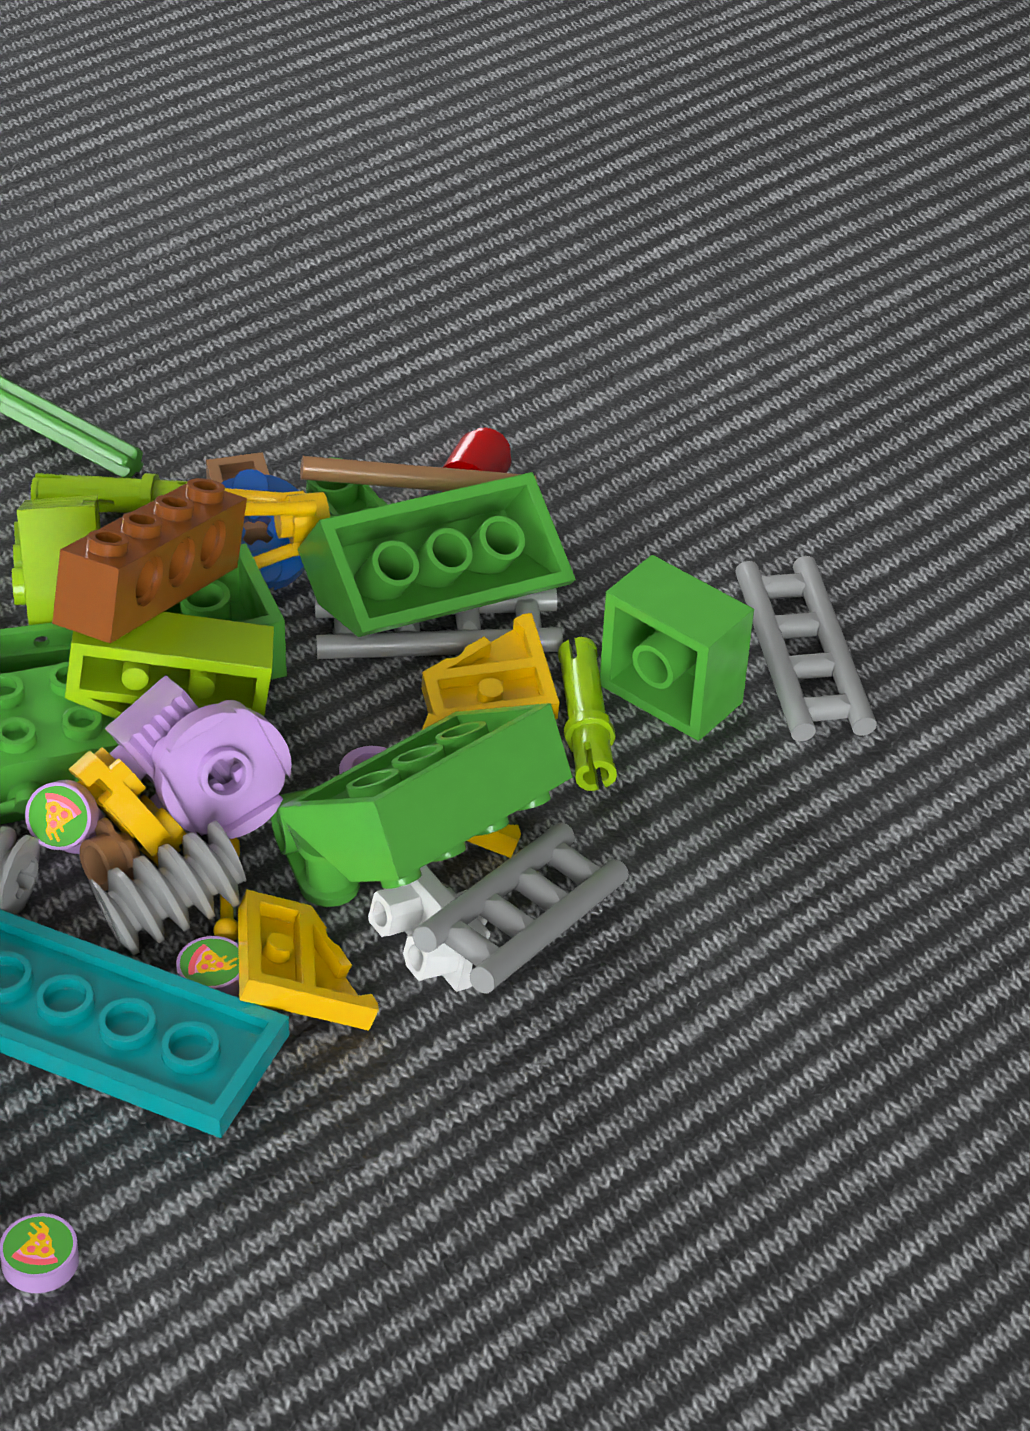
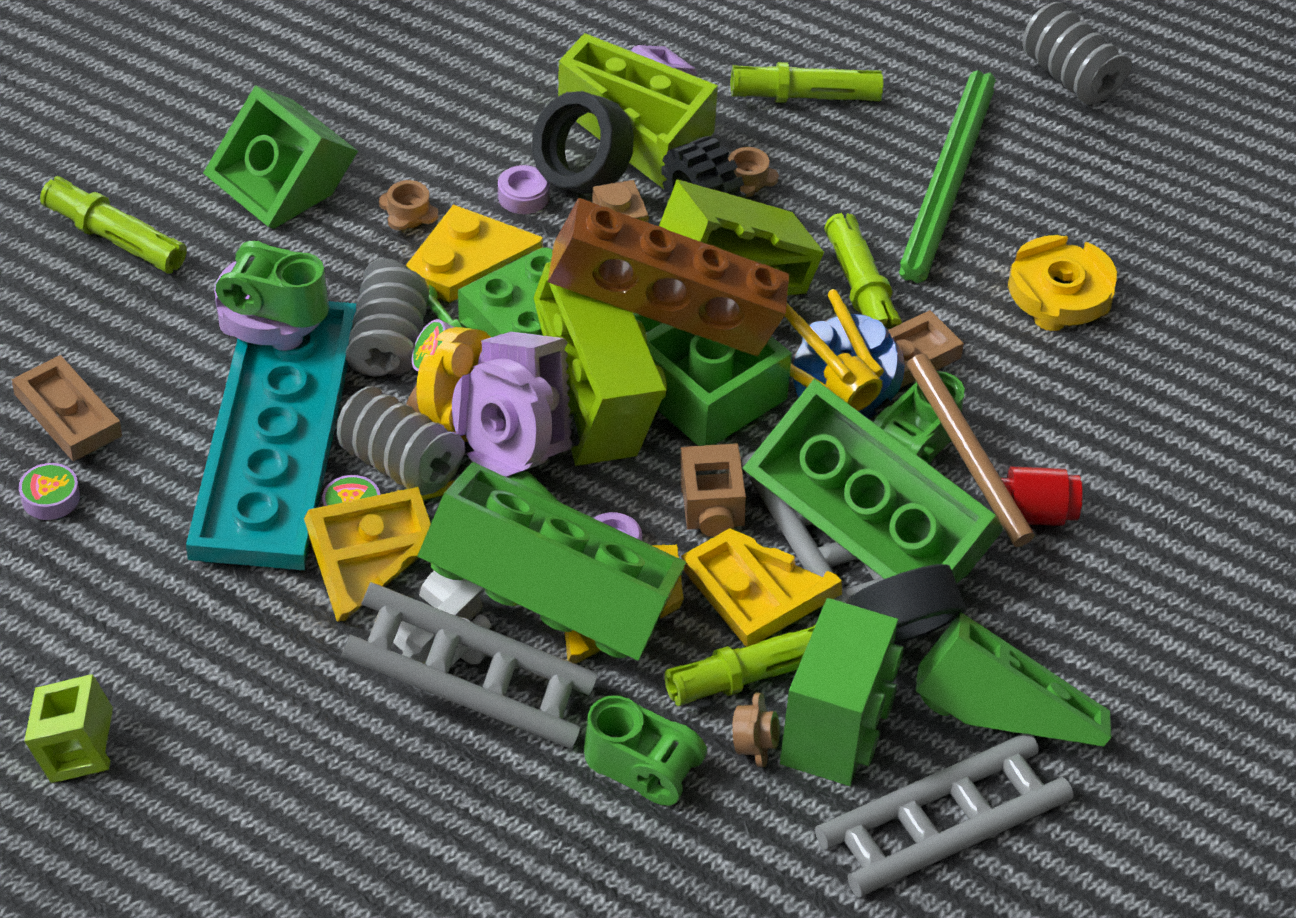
camera: 70 degrees right, 5 degrees up
(191, 391) = (1058, 303): none -> yellow plate
(358, 672) = (712, 500): none -> medium nougat brick
(433, 1262) = (69, 728): none -> lime brick
(594, 560) = (918, 598): none -> black tyre
(666, 820) = (643, 749): none -> bright green piece
(672, 732) = (755, 730): none -> medium nougat plate
(708, 547) = (1003, 689): none -> bright green slope

